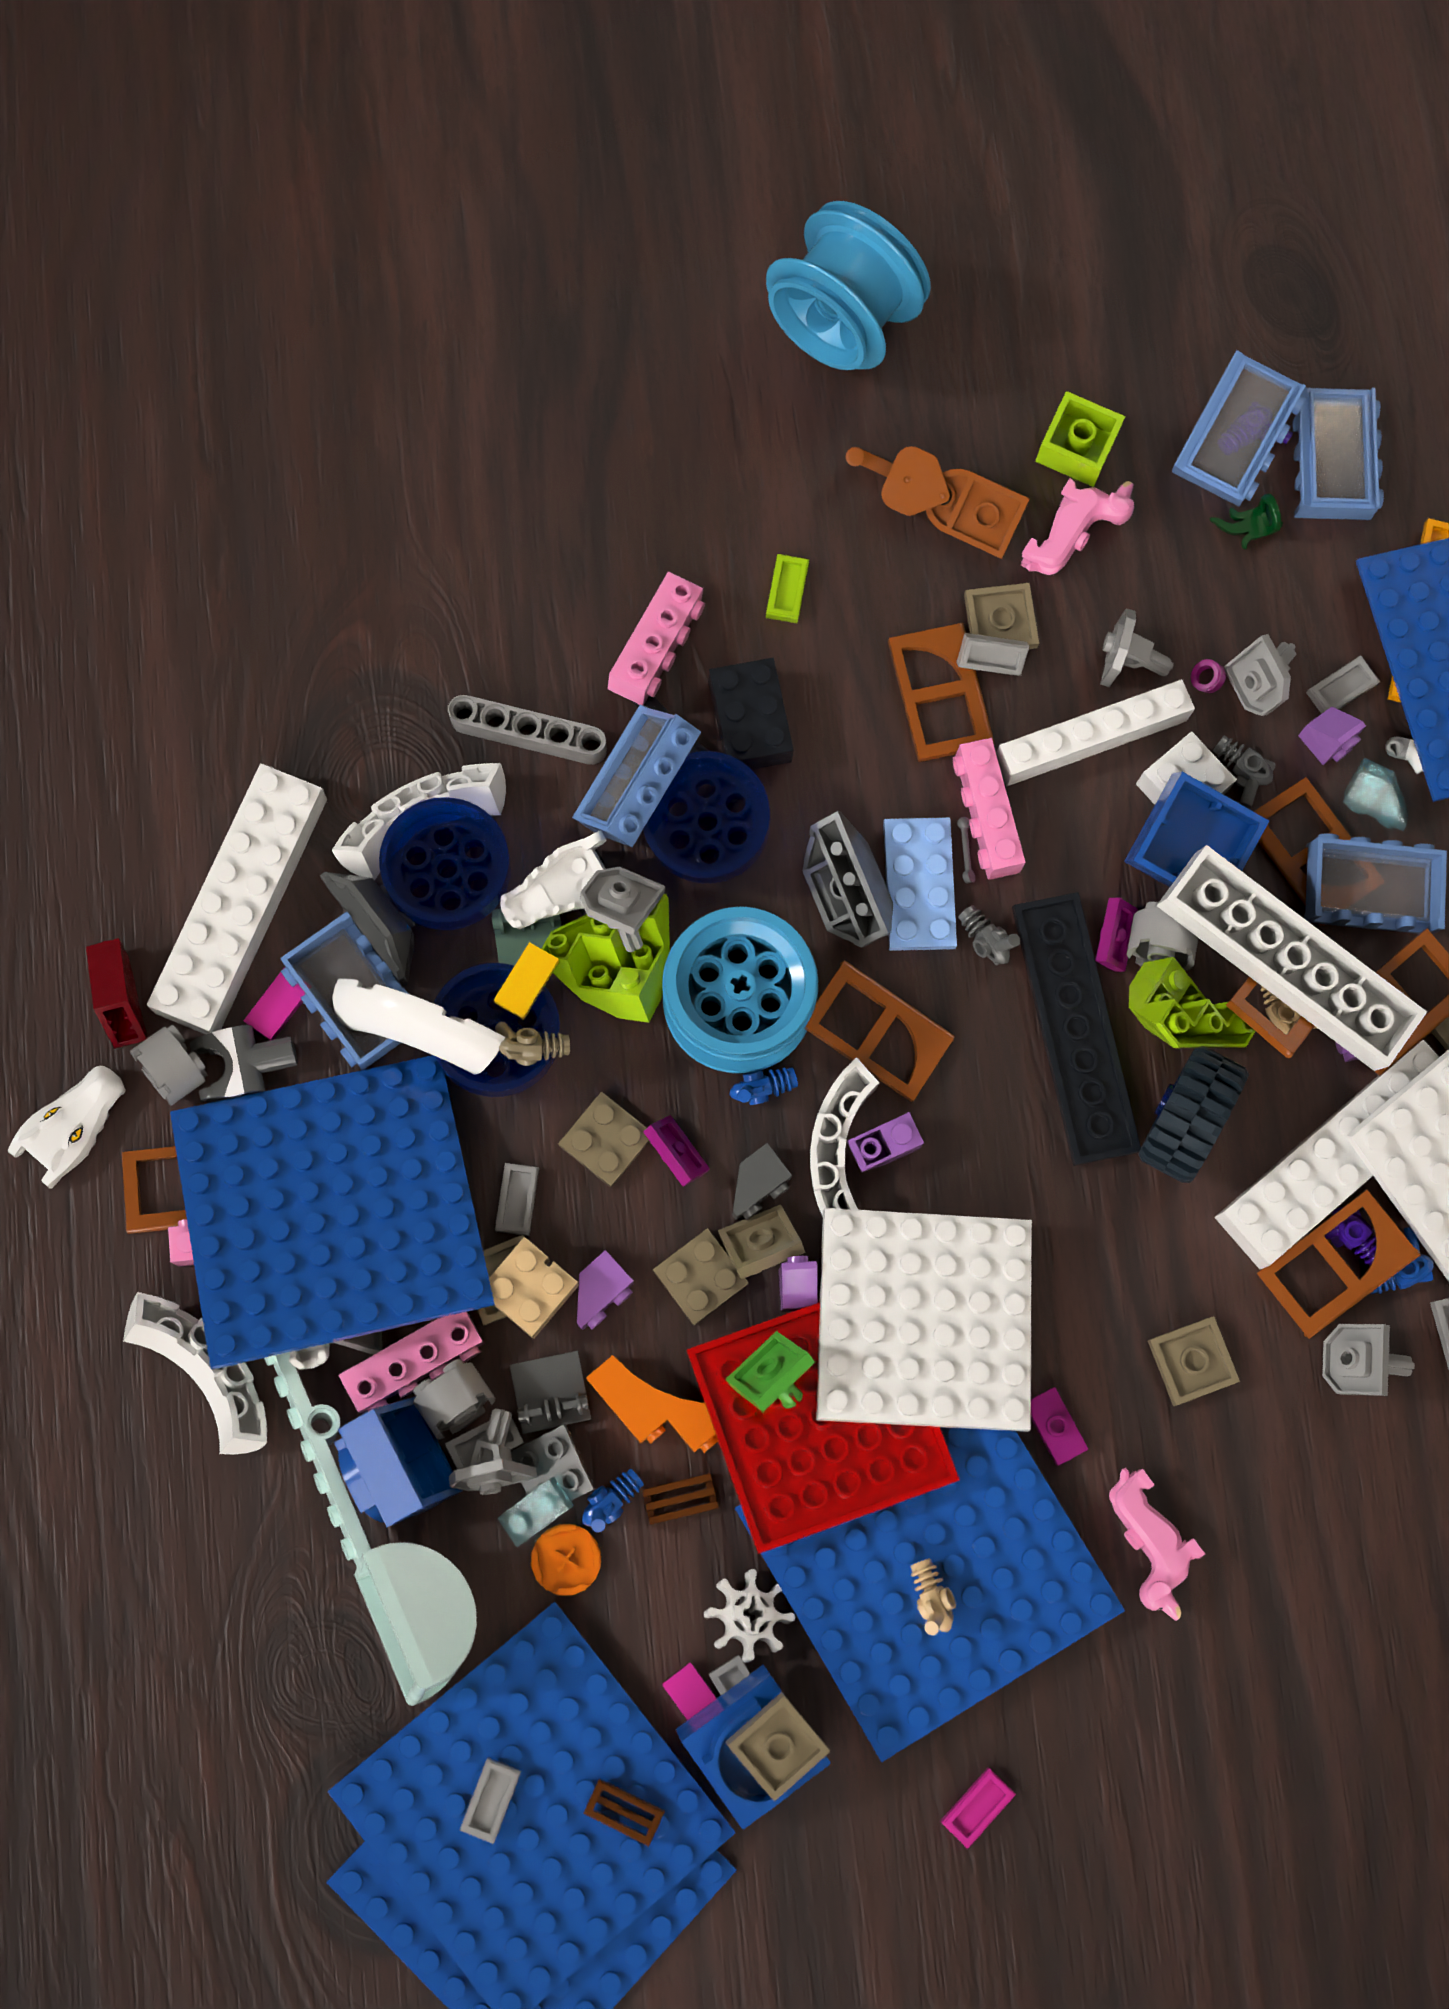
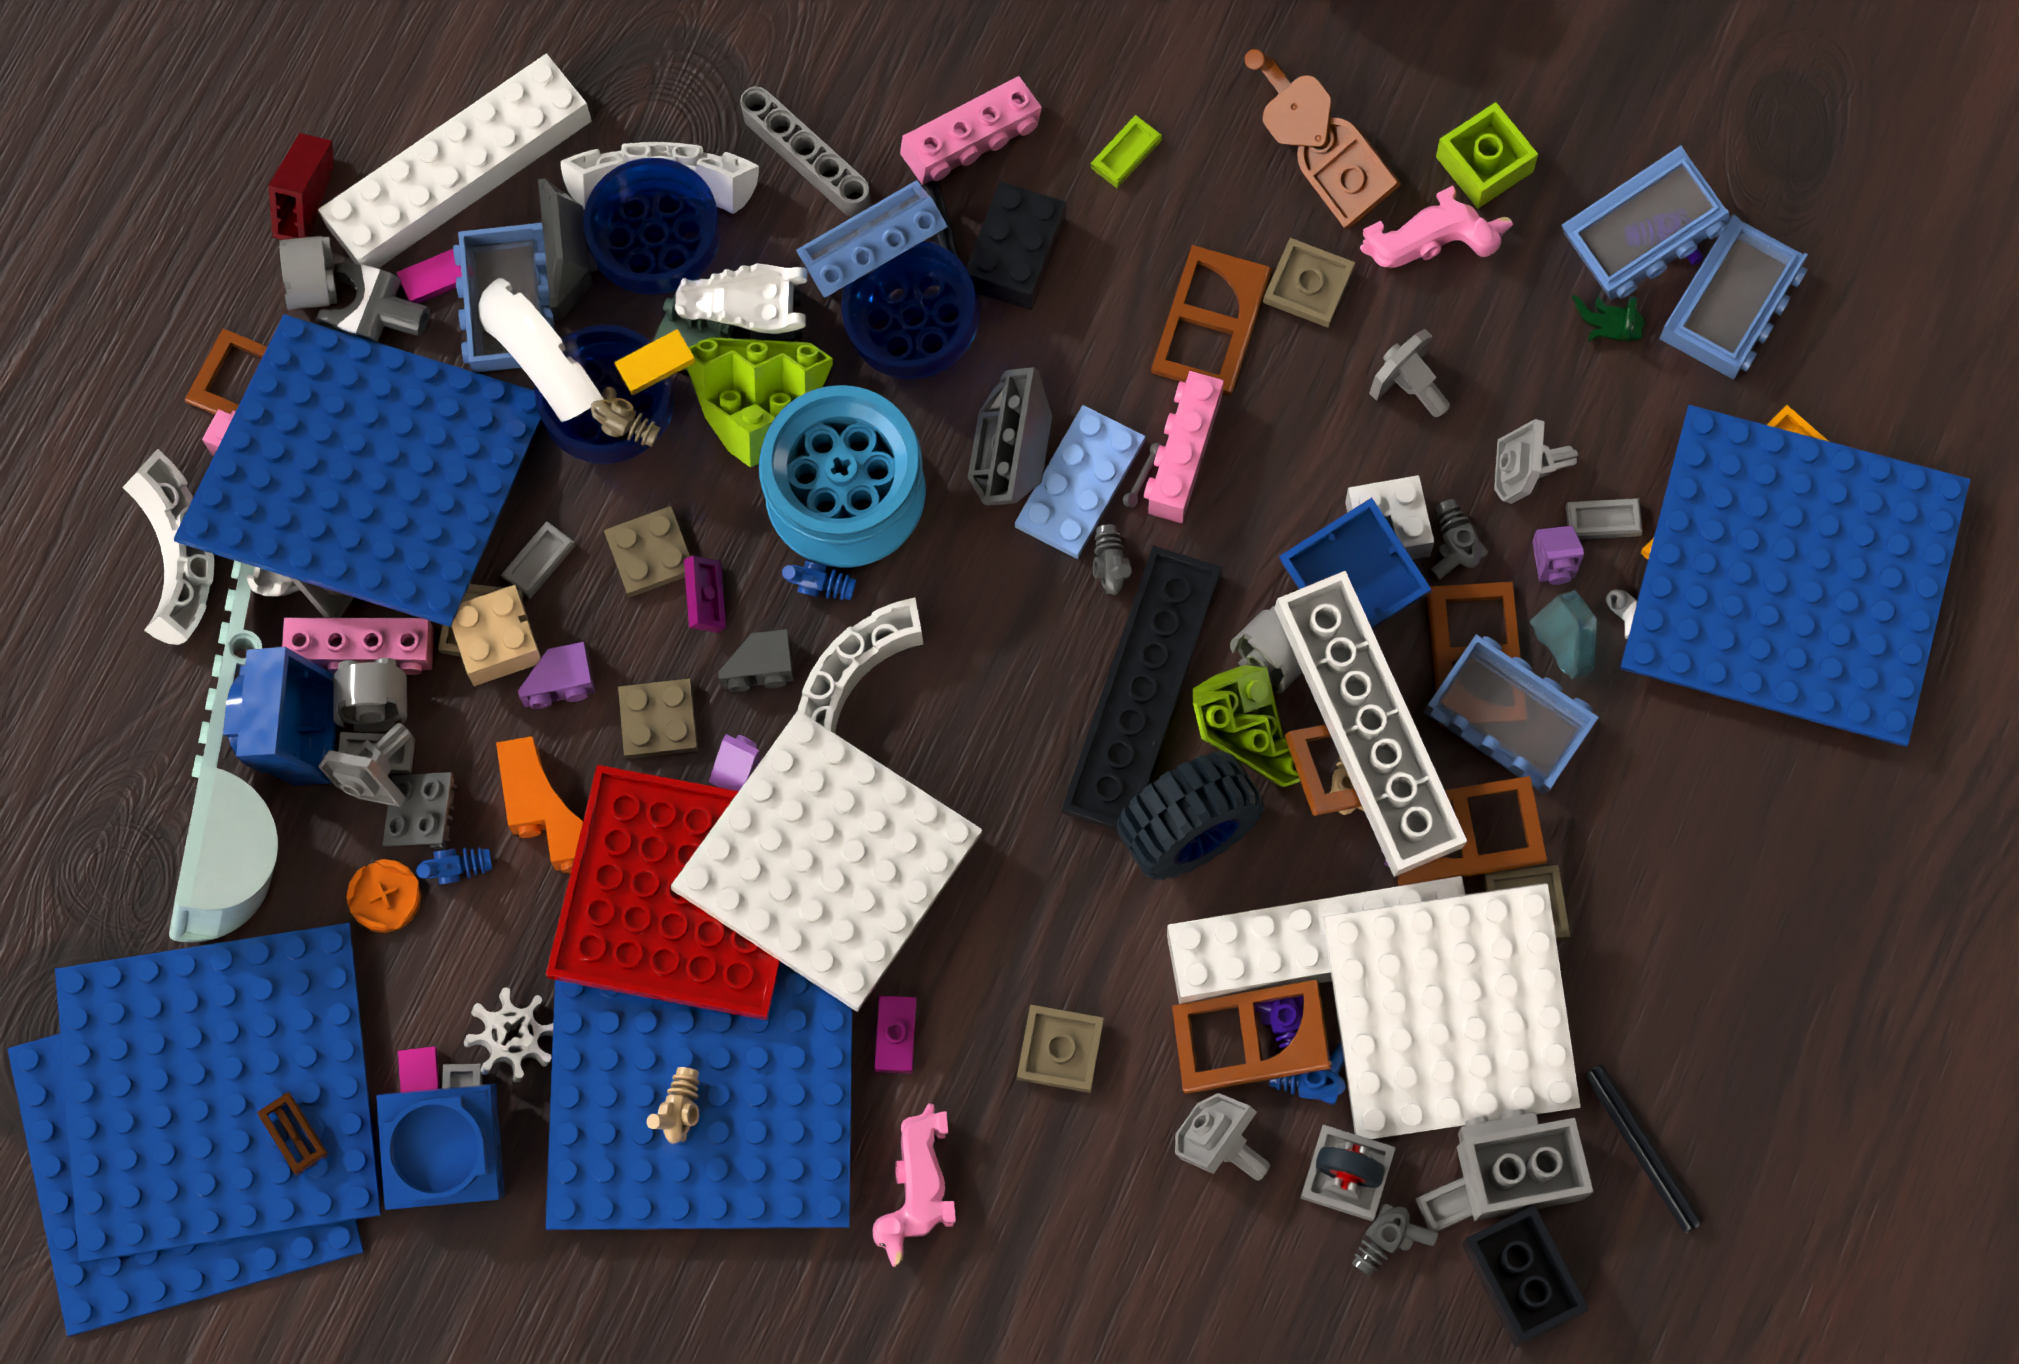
camera: 40 degrees right, 5 degrees down
(68, 1127) = (188, 282): white animal -> none
(490, 1800) = (185, 1055): light grey tile -> none
(535, 1511) = (381, 835): clear light blue plate -> none
(550, 1392) = (460, 742): dark grey hinge -> none
(621, 902) = (780, 336): light grey piece -> none
(650, 1506) = (488, 892): reddish brown tile -> none
(761, 1241) = (726, 712): dark tan plate -> none
(771, 1373) = (653, 821): bright green tile -> none
(777, 1746) = (453, 1143): dark tan plate -> none
(886, 1143) = (896, 691): medium lavender slope -> none
(928, 1037) = (1000, 621): dark orange window -> none
(977, 1807) = (610, 1327): dark pink tile -> none
(992, 654) = (1277, 309): light grey tile -> none
(1094, 732) = (1329, 431): white brick -> none
(1116, 935) = (1229, 623): magenta plate -> none
(1217, 681) = (1485, 446): magenta piece -> none

